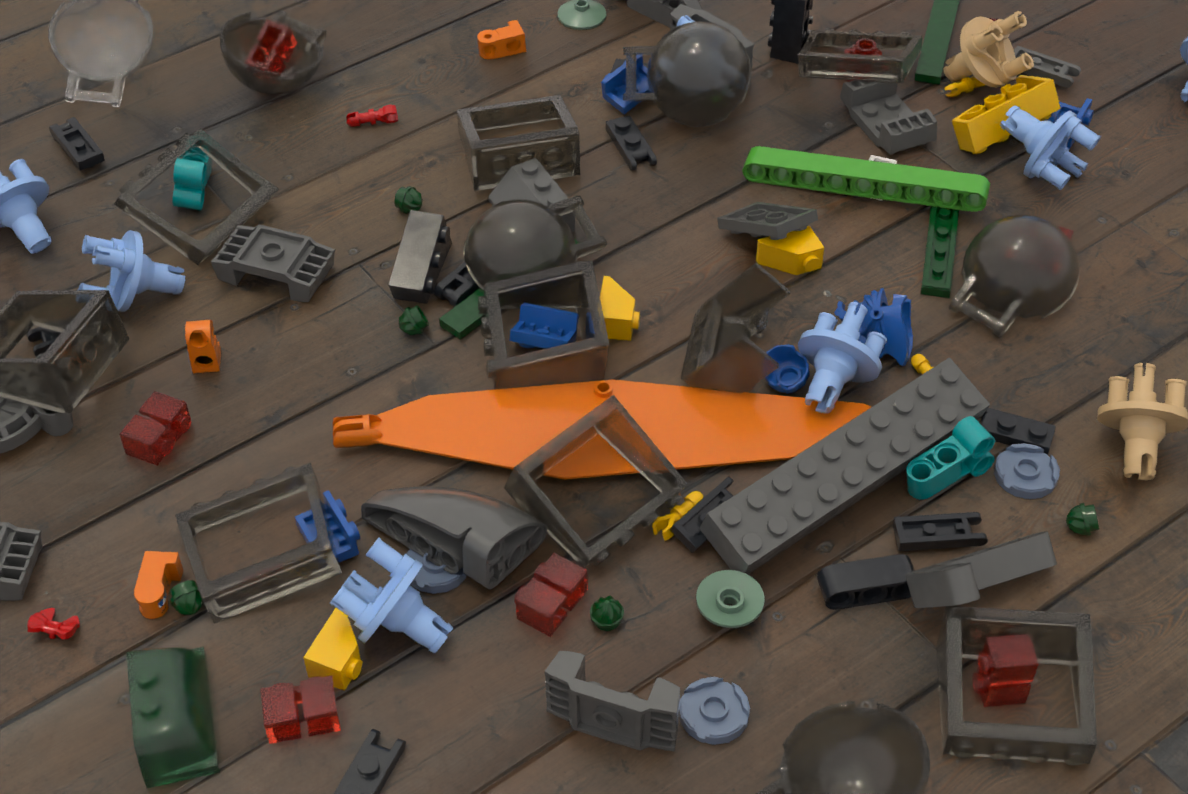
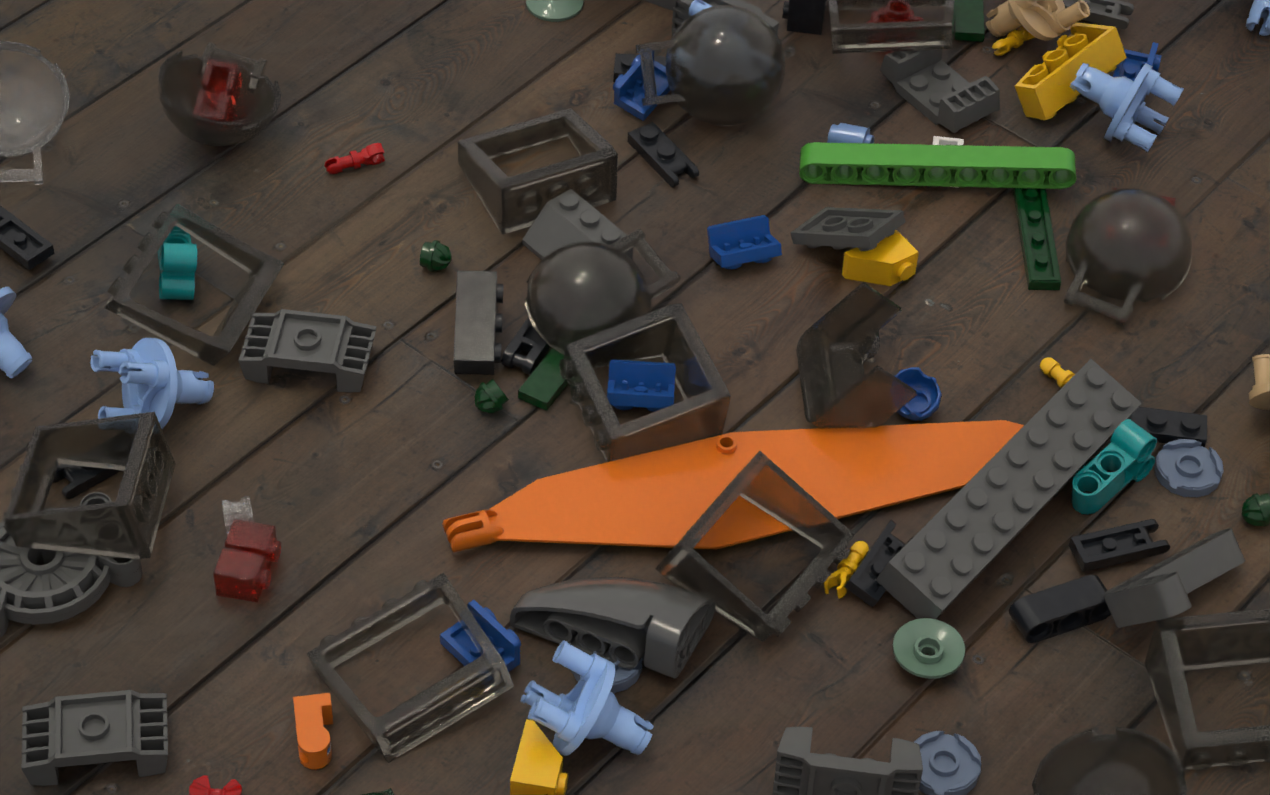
camera: 15 degrees left, 0 degrees up
(166, 385) = (236, 510): none -> clear wheel
(186, 597) = (353, 740): dark green plate -> none
(202, 342) = (264, 457): orange leg -> none
(502, 41) = (476, 48): orange leg -> none
(553, 586) = (743, 669): clear red piece -> none
(606, 613) = (805, 684): dark green plate -> none
(618, 310) = (720, 350): yellow slope -> none
(673, 220) = (742, 242): none -> blue bracket
(795, 143) = (849, 134): none -> medium blue brick
(839, 356) = (972, 372): light blue piece -> none
(890, 321) = (999, 334): blue helmet -> none
(1005, 670) = (1225, 675): clear red piece -> none

